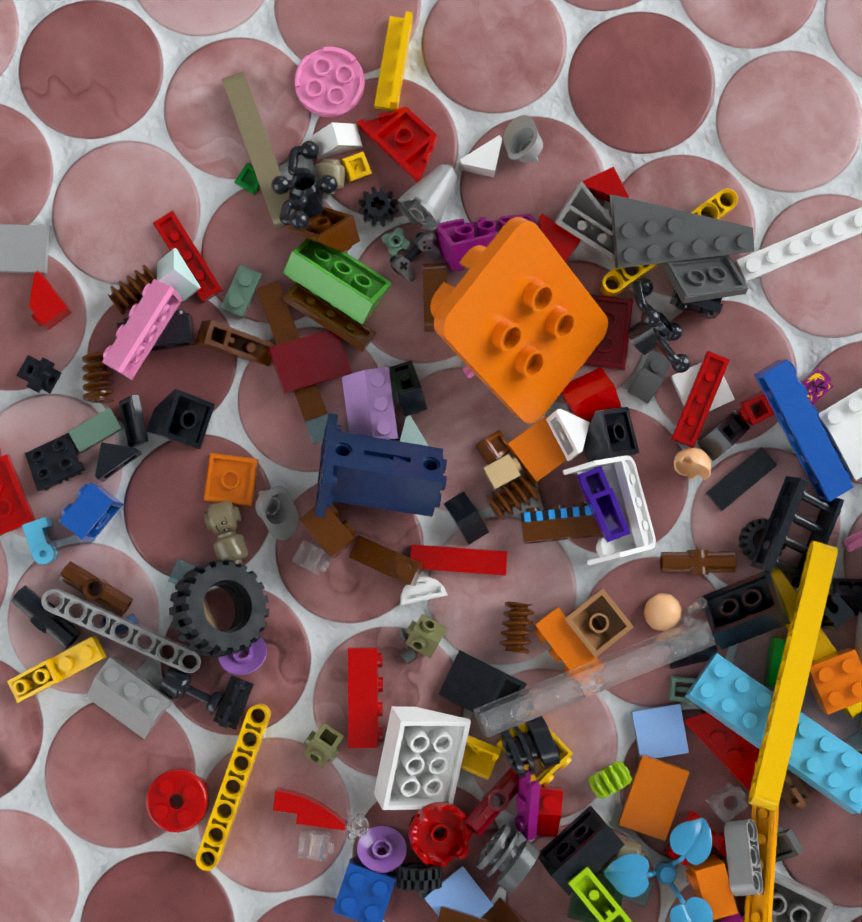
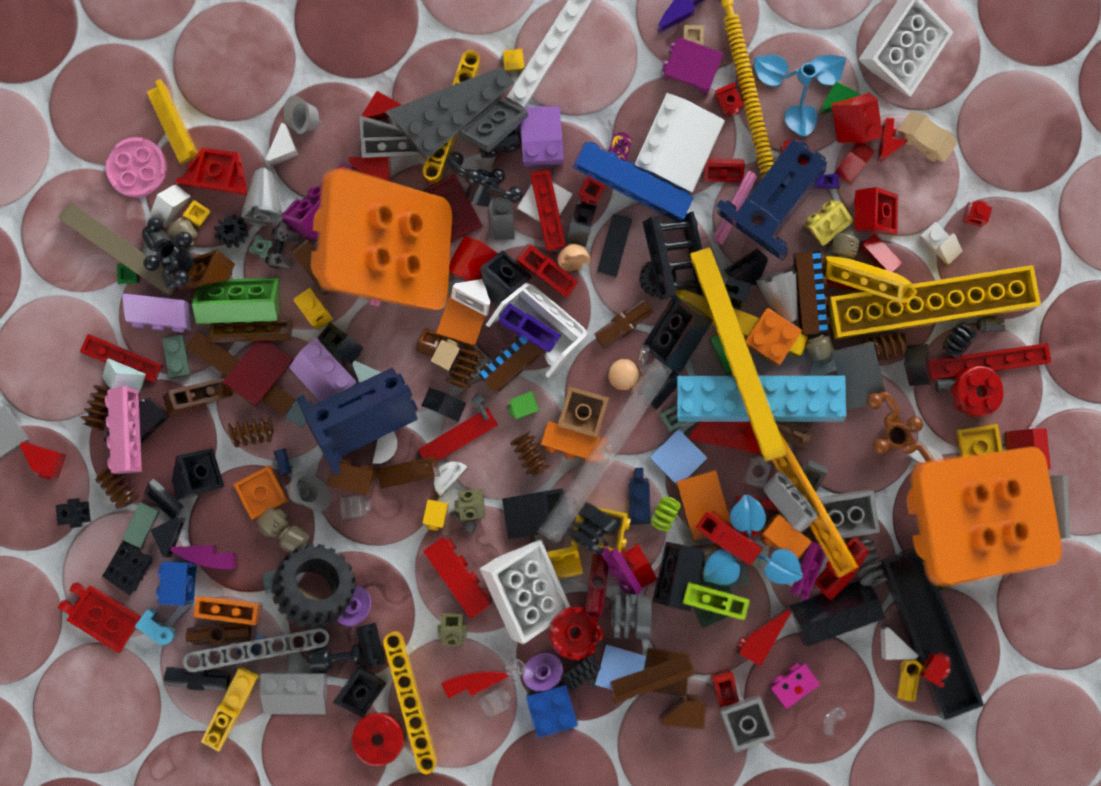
camera: 30 degrees left, 0 degrees up
(121, 572) = (228, 610): none -> orange brick
(137, 506) = (207, 556): none -> magenta slope
(192, 741) = (360, 691): none -> black slope
(253, 237) = (157, 312): none -> lavender slope
(261, 415) = (251, 433): none -> reddish brown piece
(272, 465) = (282, 462): none -> dark blue pin
(380, 522) = (385, 448): none -> white tile
(384, 620) = (435, 514): none -> yellow brick
(404, 337) = (313, 309): none -> yellow torso
(502, 538) = (478, 401): none -> dark grey hand
(543, 574) = (523, 406): none -> bright green brick
(594, 745) = (639, 498): none -> dark blue hinge
(657, 457) = (546, 270): none -> red slope
(657, 849) = (726, 536): none -> red slope
(743, 324) = (542, 137): none -> medium lavender slope
(767, 228) = (513, 60): none -> yellow tile

